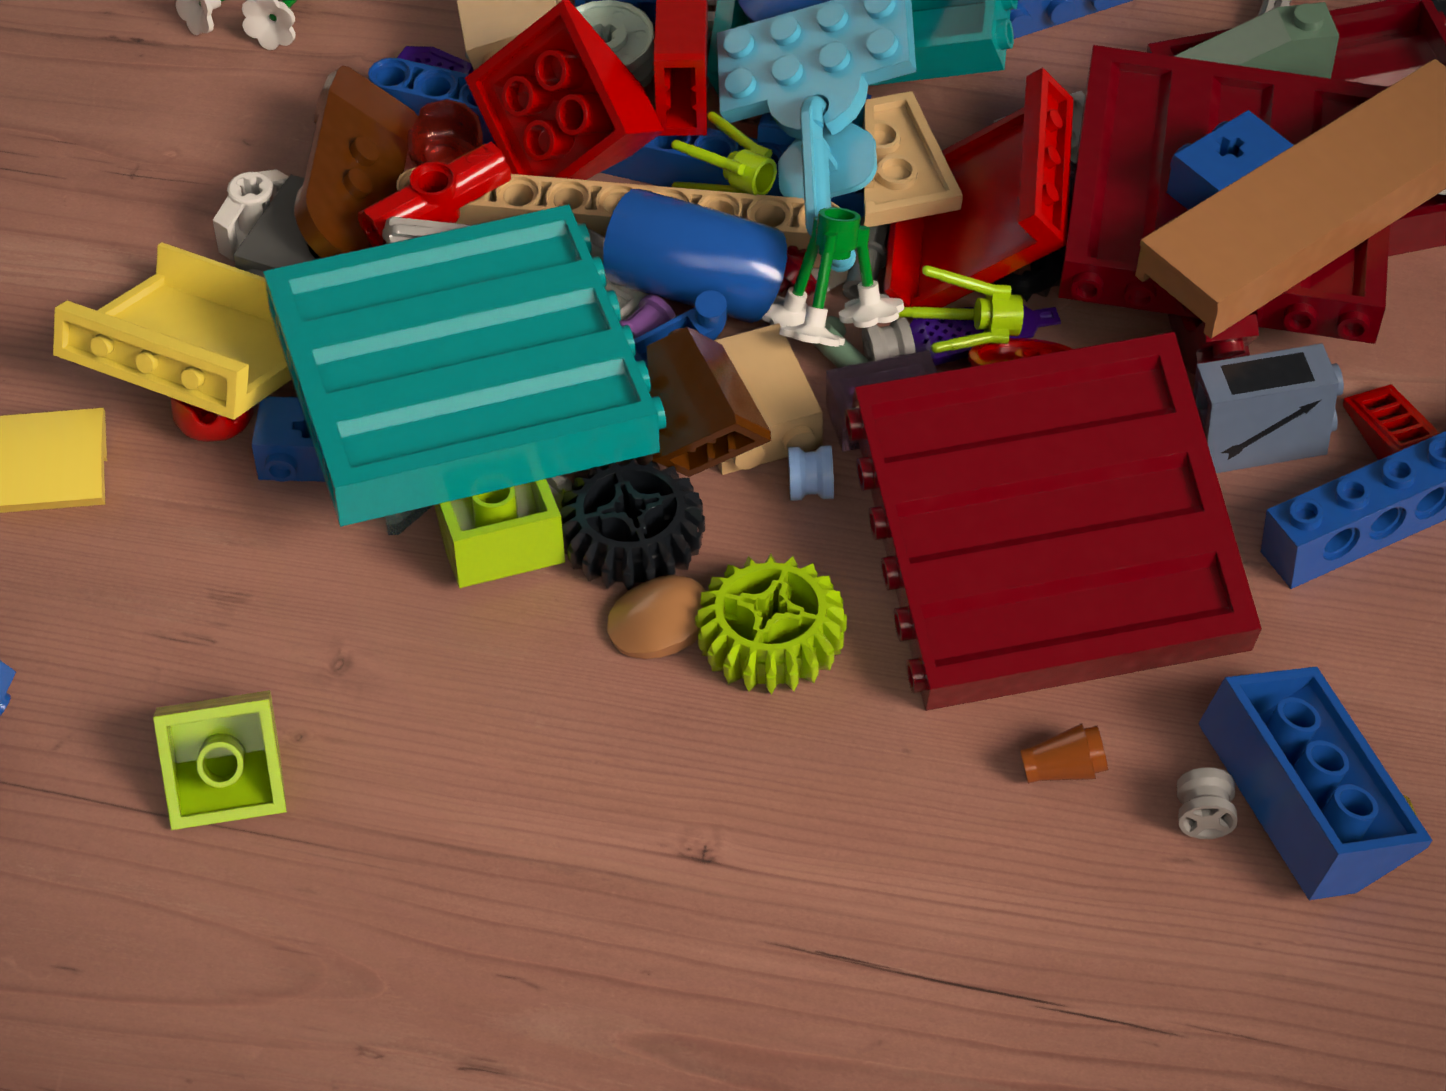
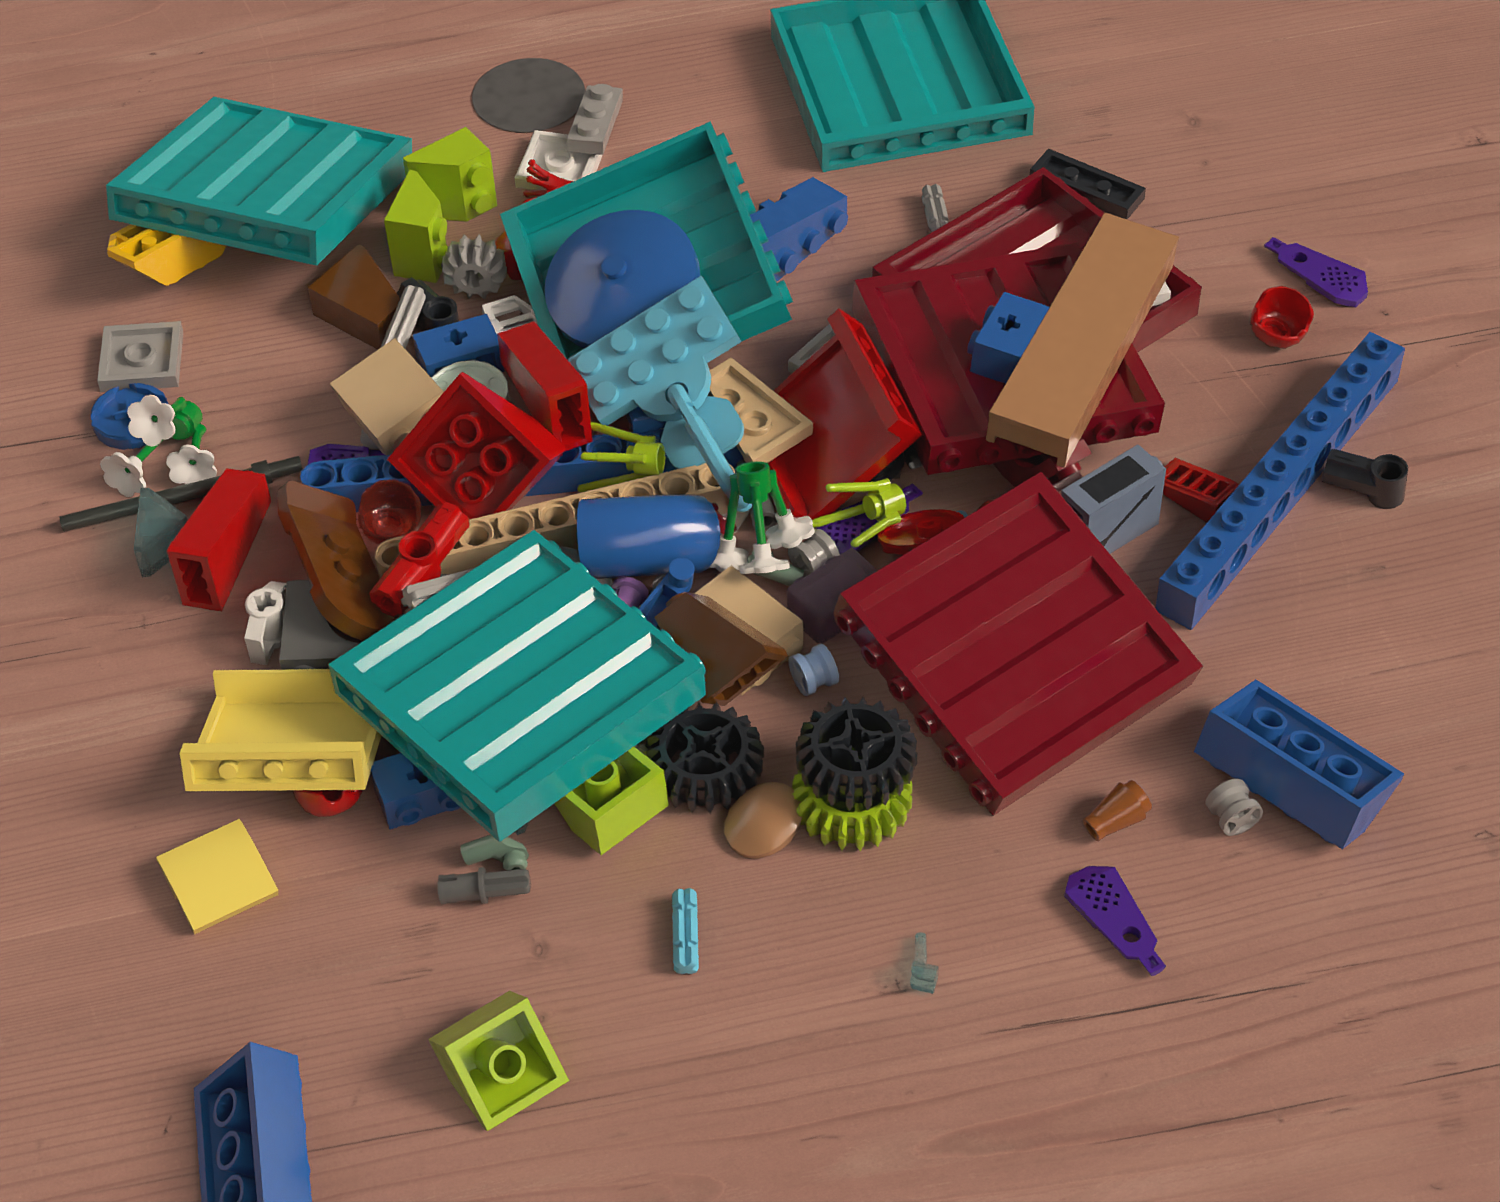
camera: 25 degrees left, 0 degrees up
(193, 82) = (155, 530): none -> clear light blue slope
(248, 106) = (218, 538): none -> red slope
(313, 571) = (482, 885): none -> dark grey axle
(336, 54) = (173, 495): none -> pearl dark grey bar
(355, 538) = (508, 851): none -> sand green arm
(501, 703) = (685, 931): none -> medium azure axle
(735, 852) = (924, 975): none -> clear light blue hand
(784, 575) = (835, 769): none -> black gear
(993, 877) = (1117, 919): none -> dark purple piece
(1283, 39) = (973, 234): sand green slope -> none

